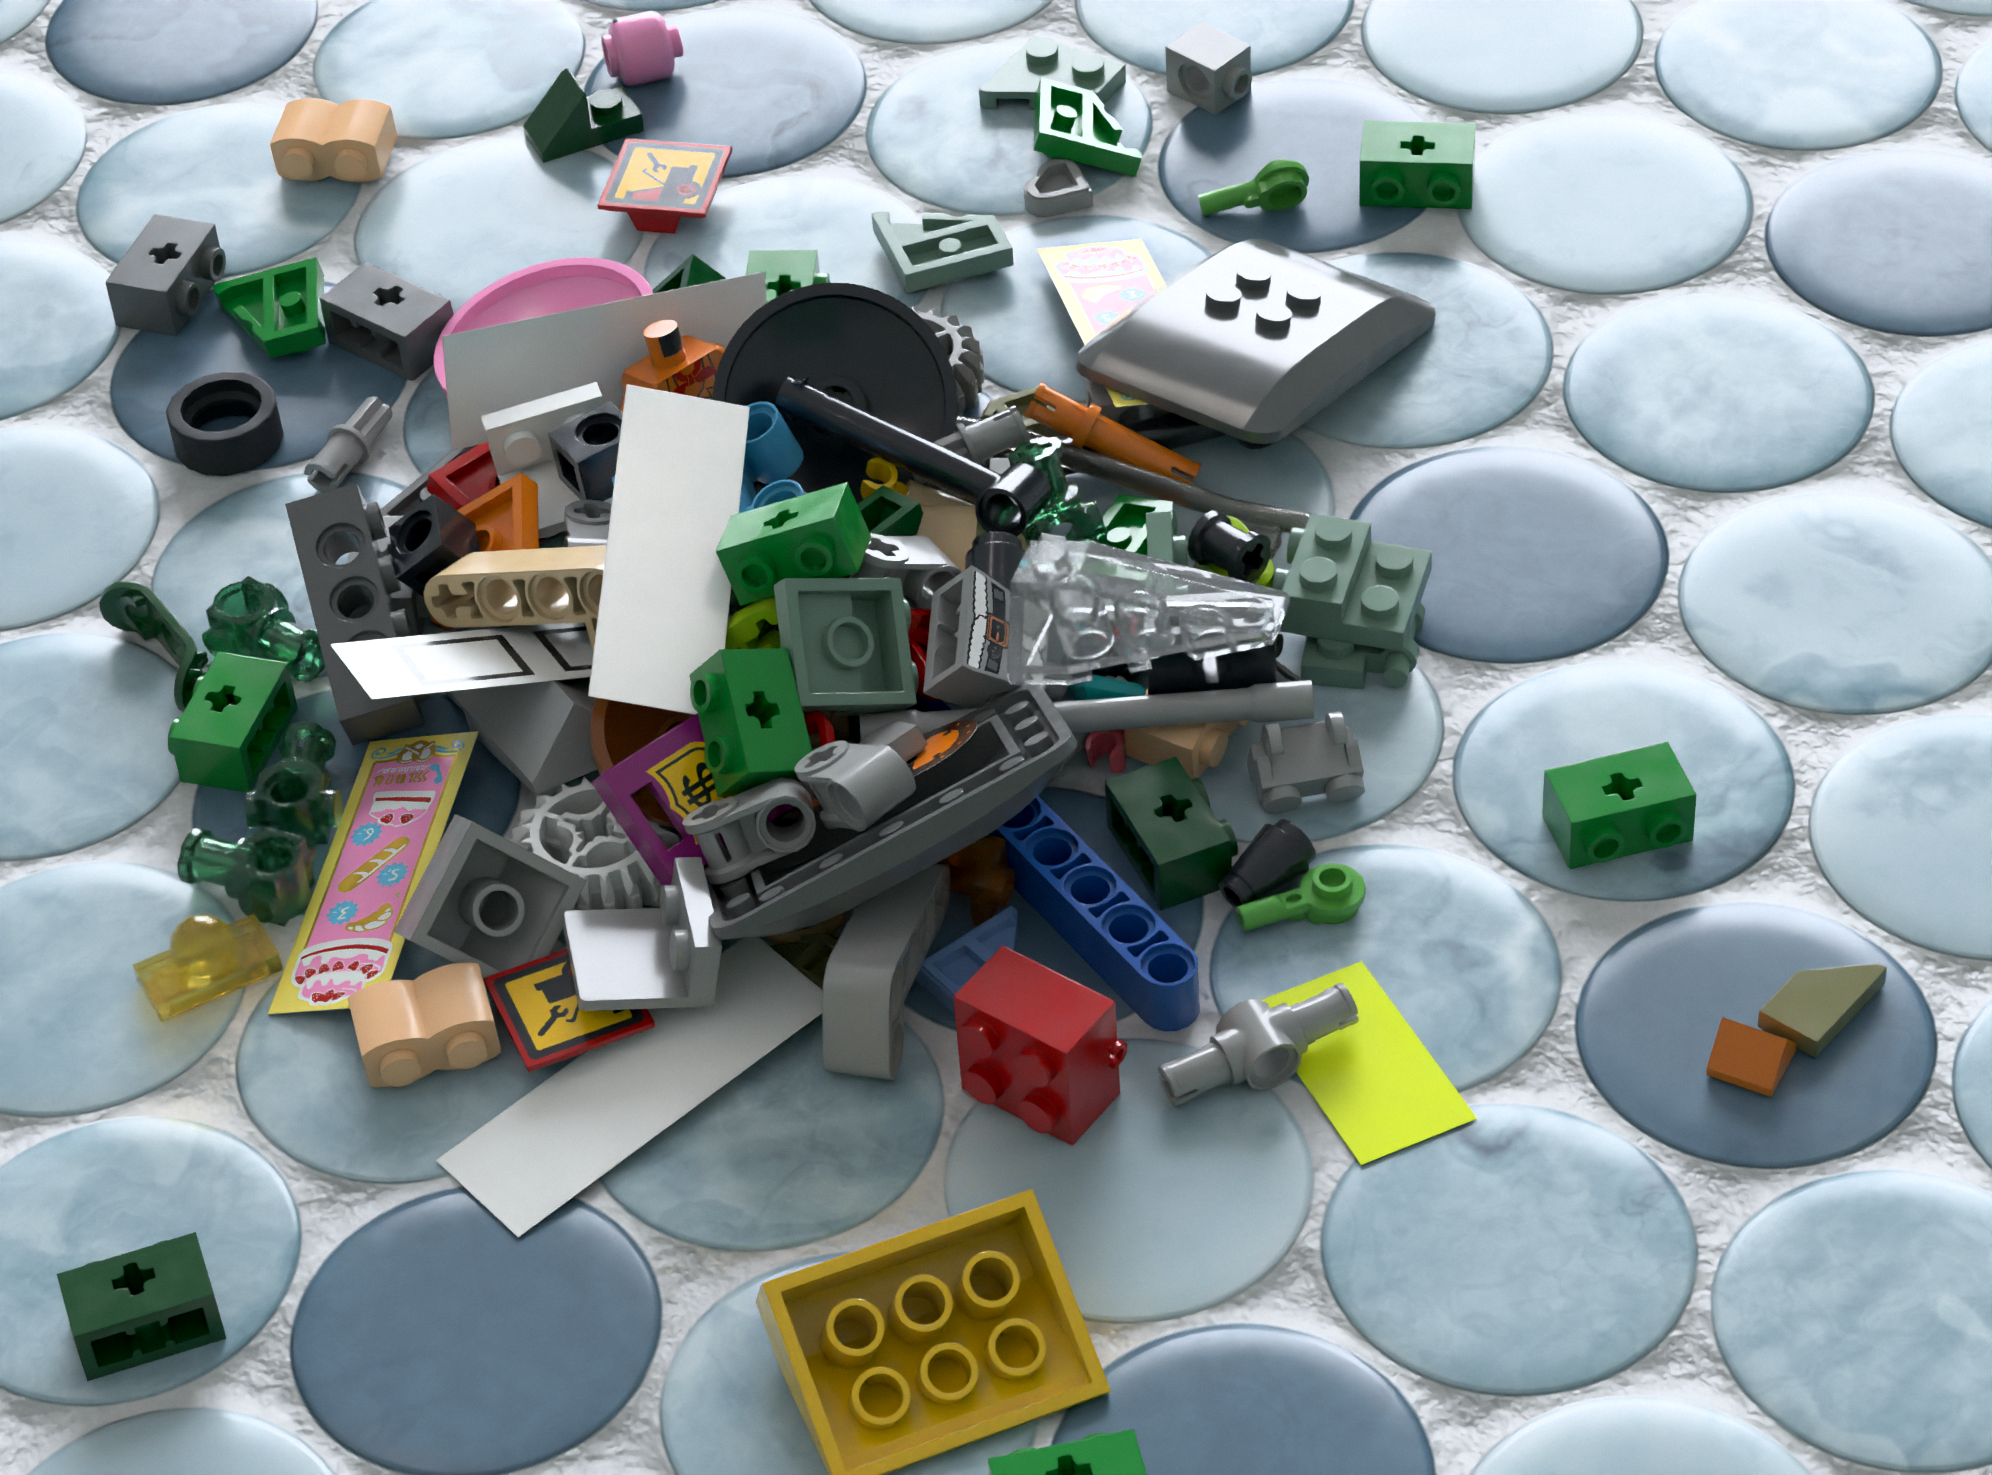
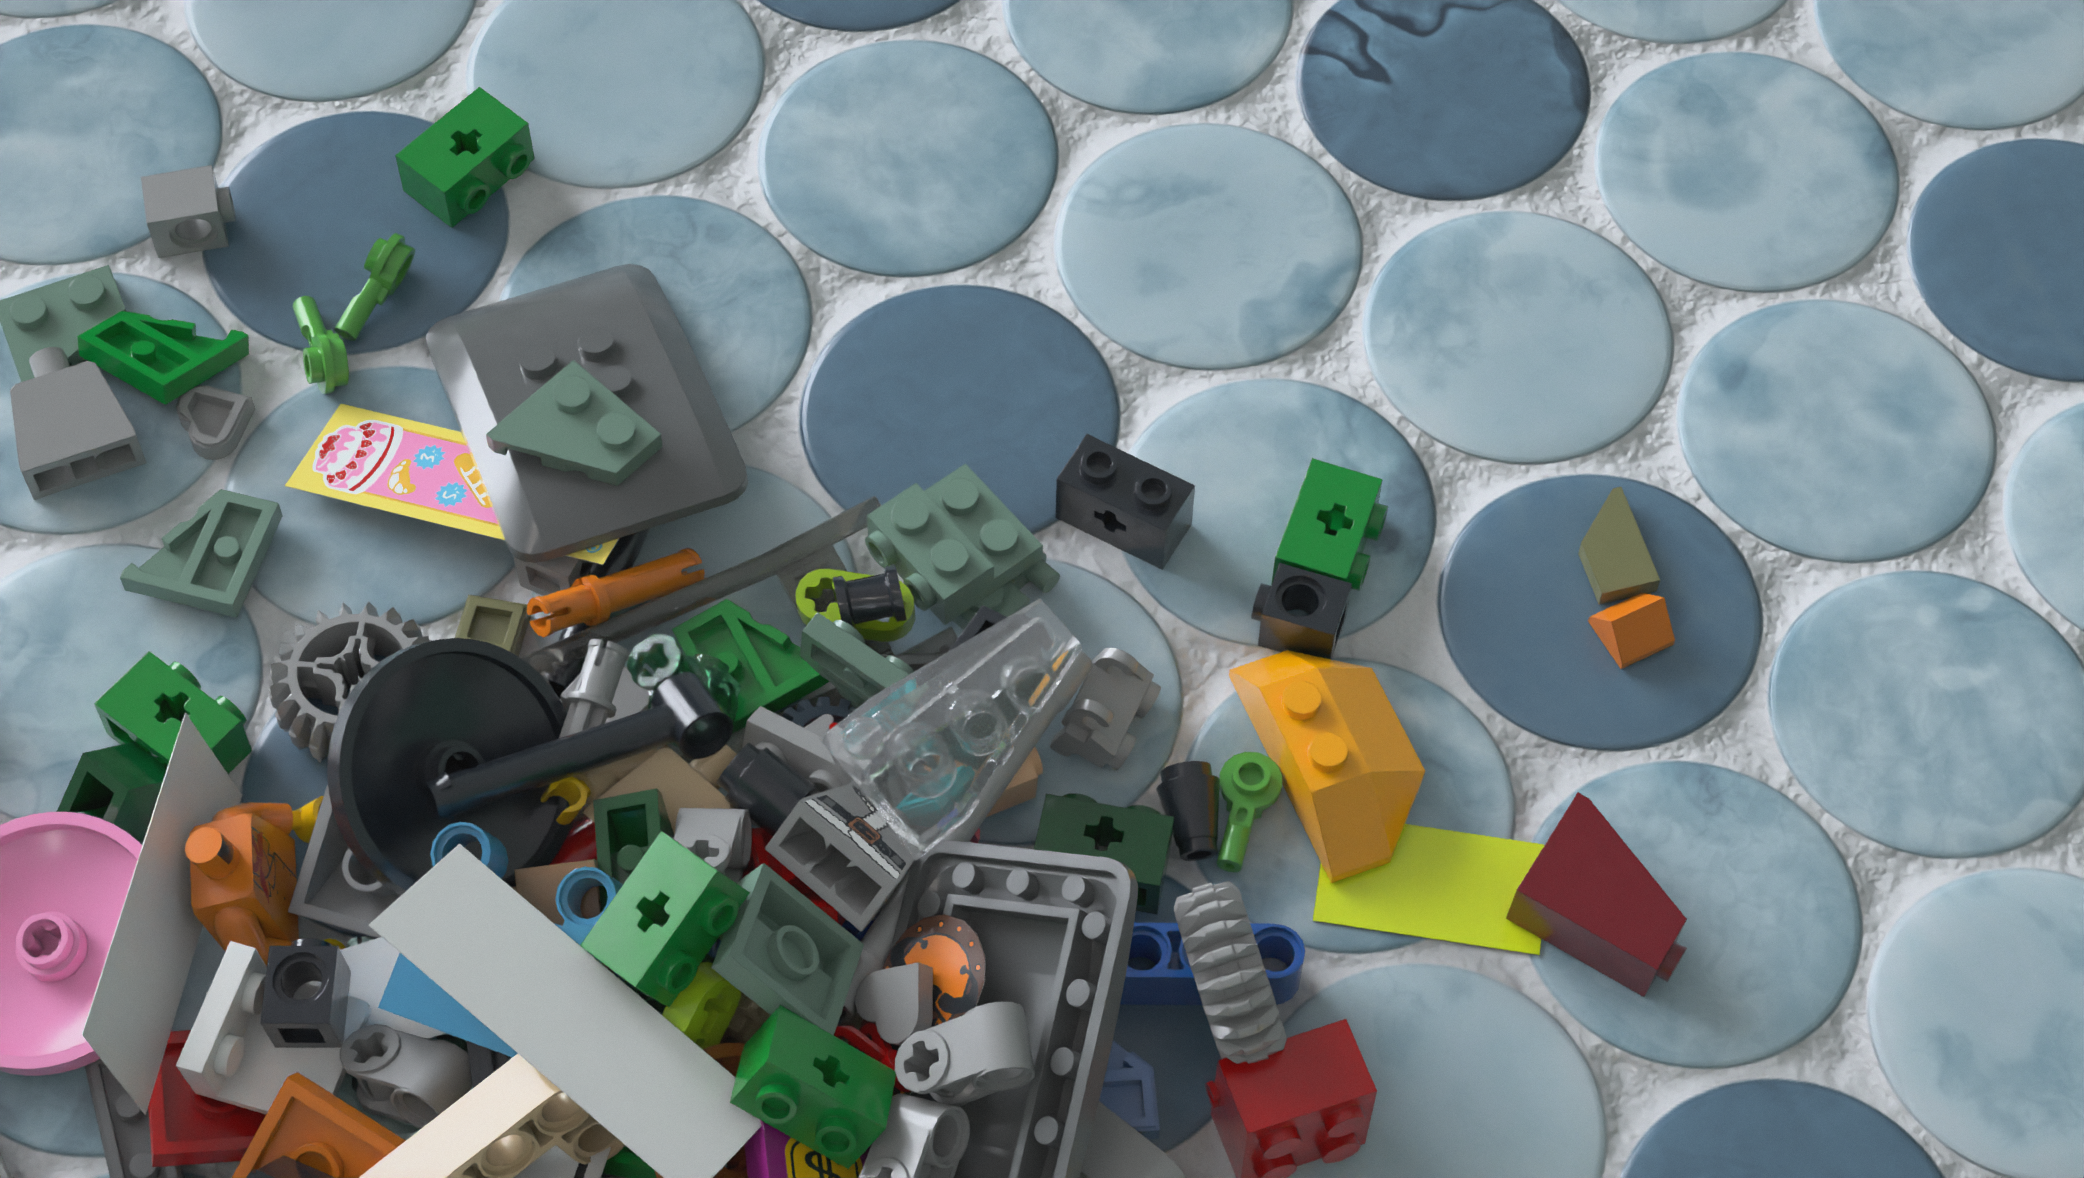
camera: 60 degrees left, 15 degrees up
(966, 121) = (69, 425): none -> light grey torso
(1082, 899) = (1229, 973): none -> light grey gear
(1164, 202) = (326, 357): none -> bright green plate
(1202, 312) = (578, 427): none -> sand green wing
(1258, 1044) = (1382, 943): light grey pin -> none
(1405, 919) = (1337, 754): none -> light orange wedge
(1438, 1154) = (1600, 902): none -> dark red slope
(1510, 669) = (1124, 501): none -> black brick
(1523, 832) = (1299, 589): none -> black brick

